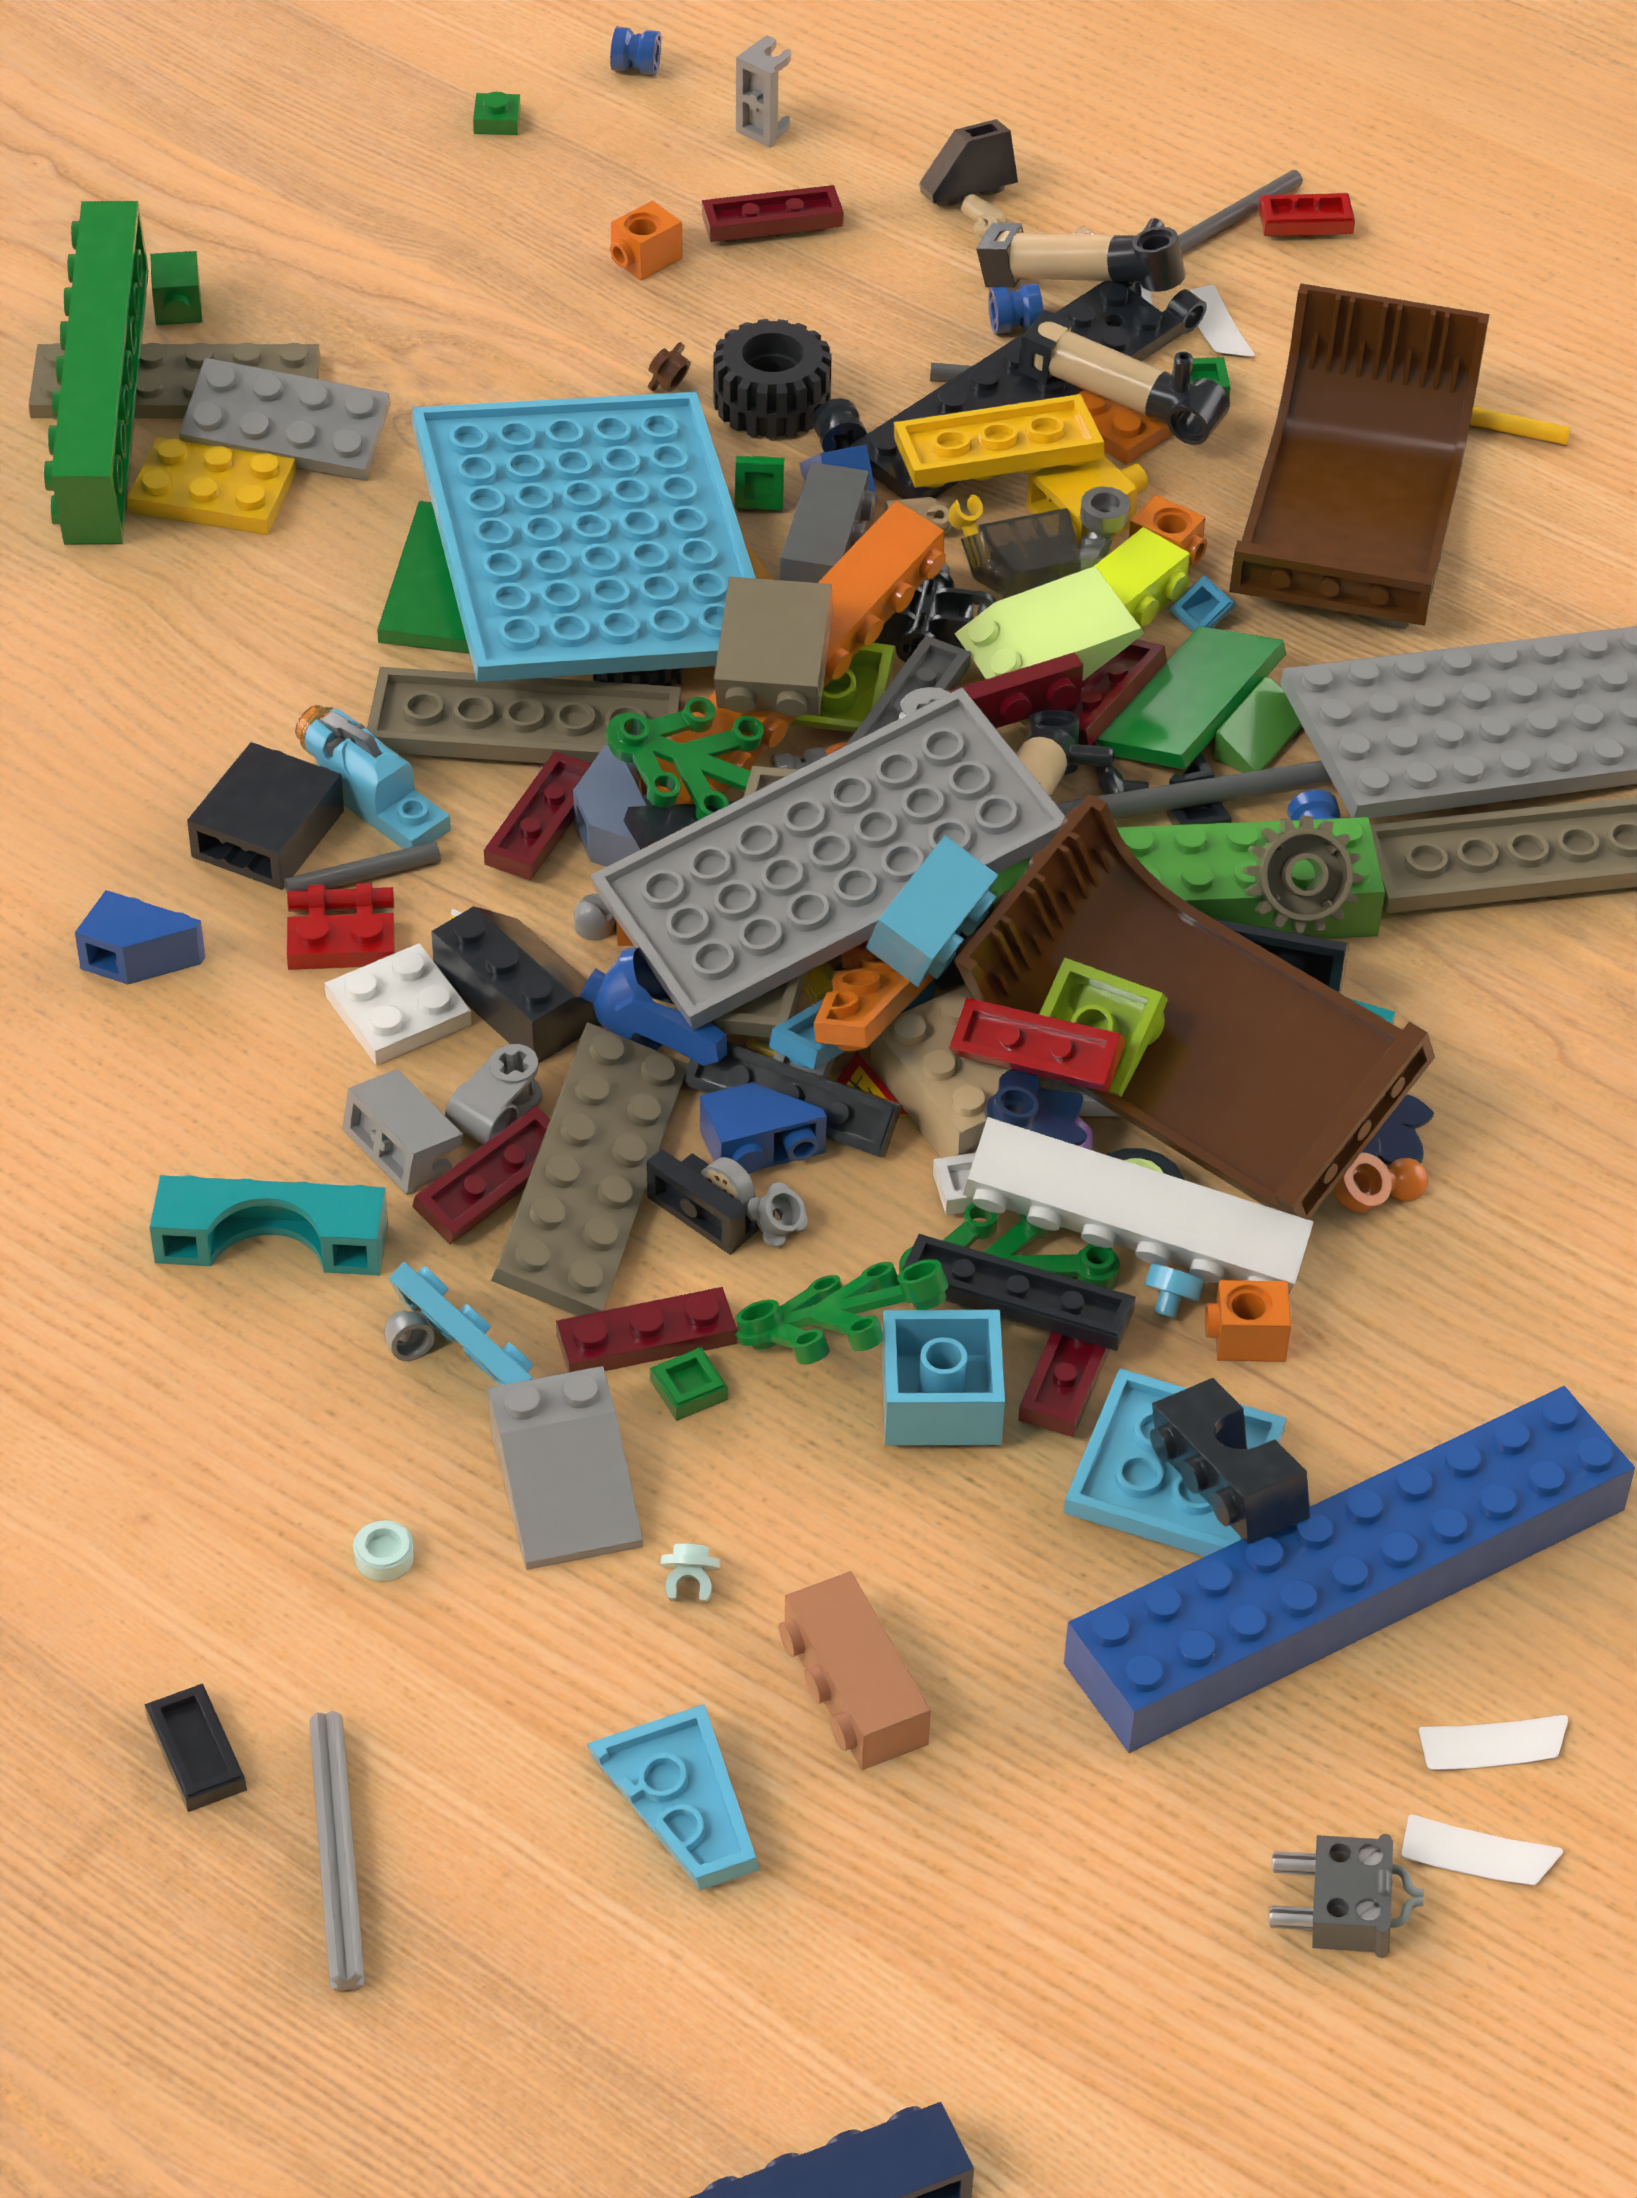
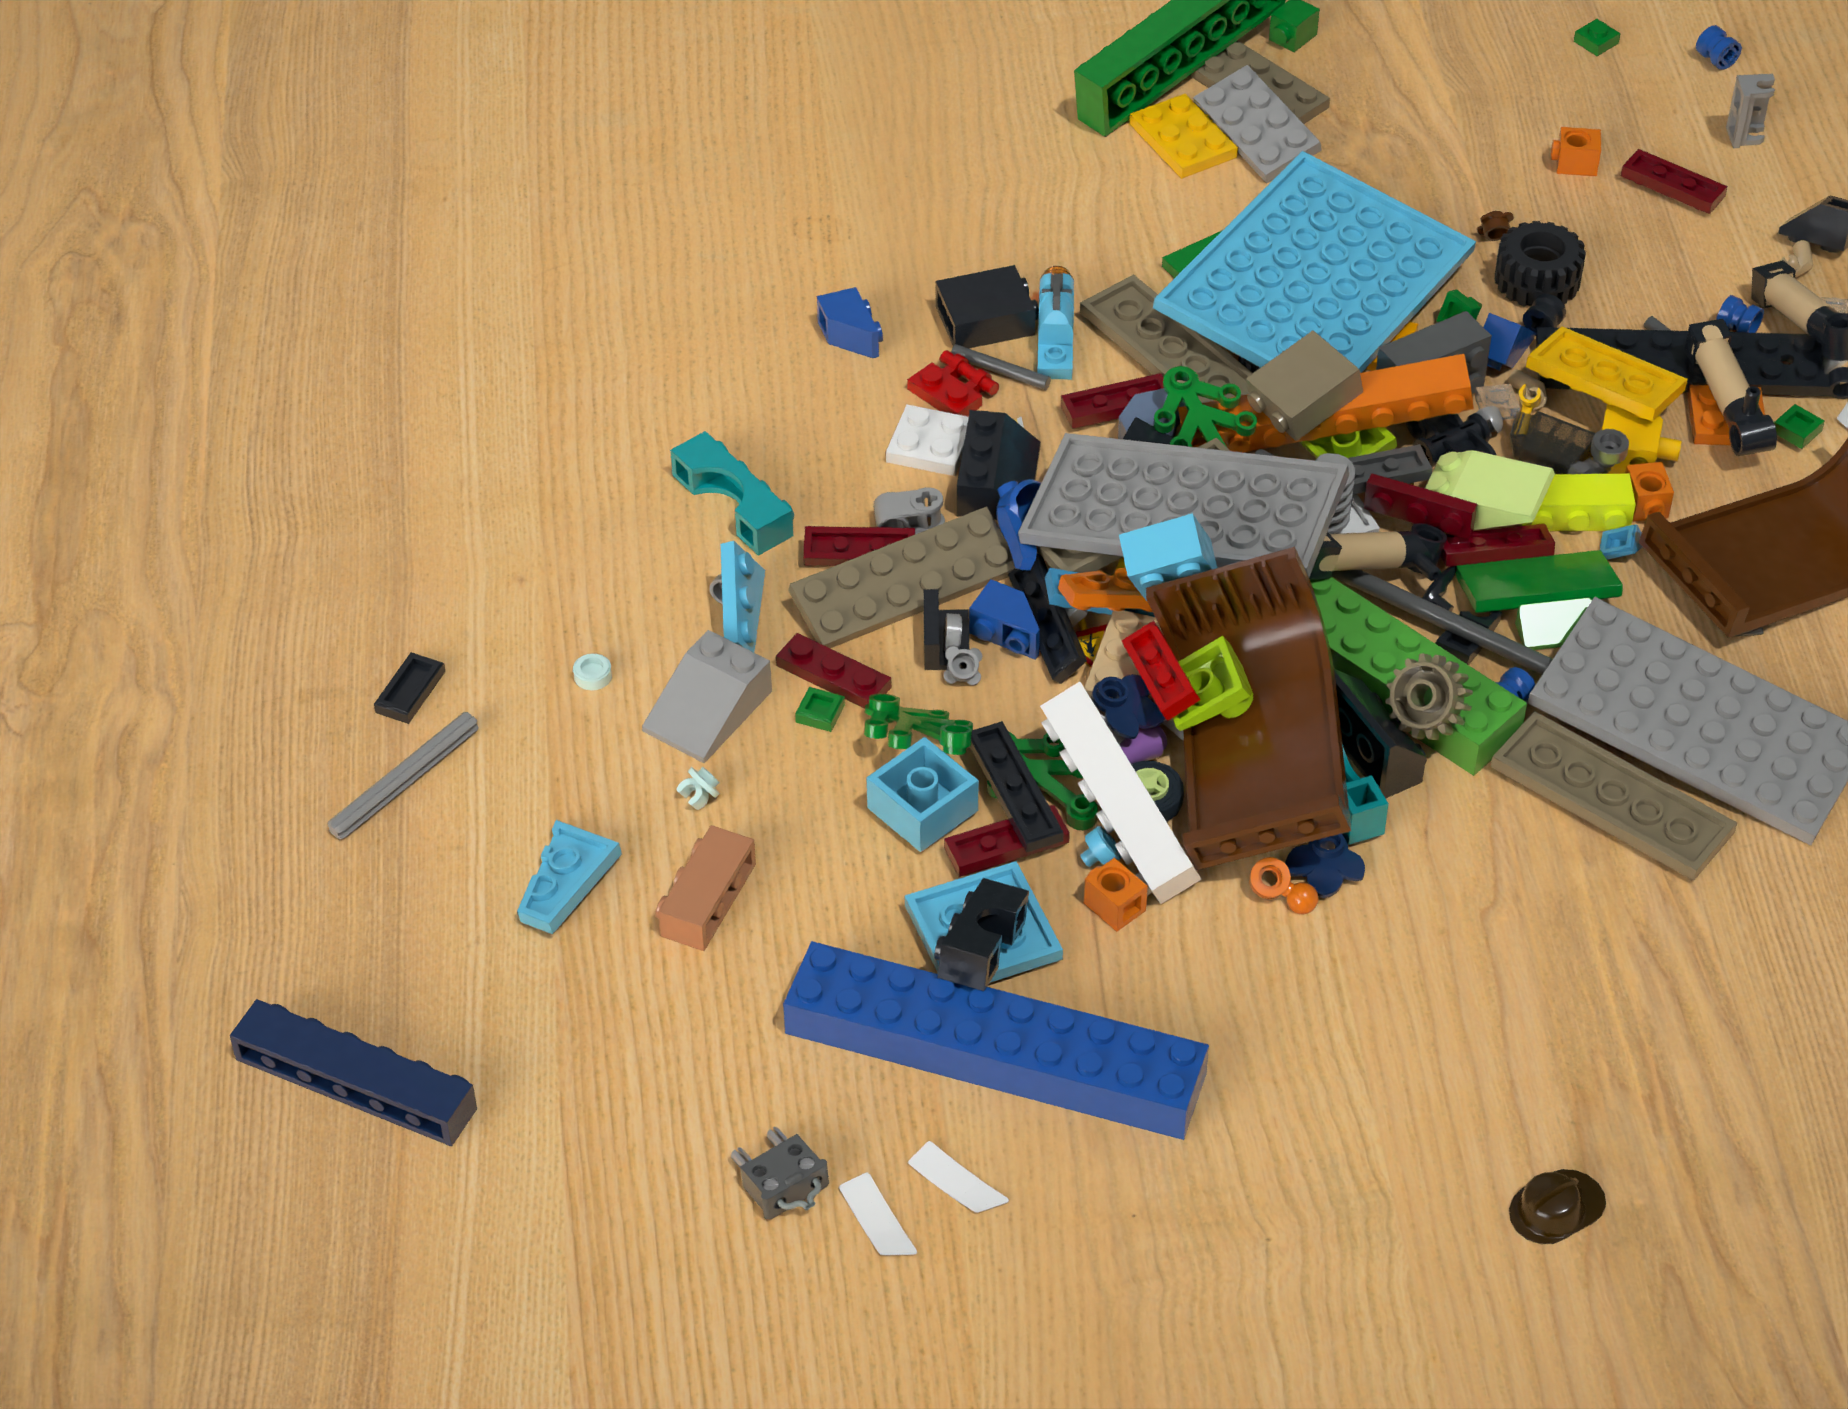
camera: 50 degrees right, 0 degrees up
(400, 1130) = (847, 492): light grey hinge -> none

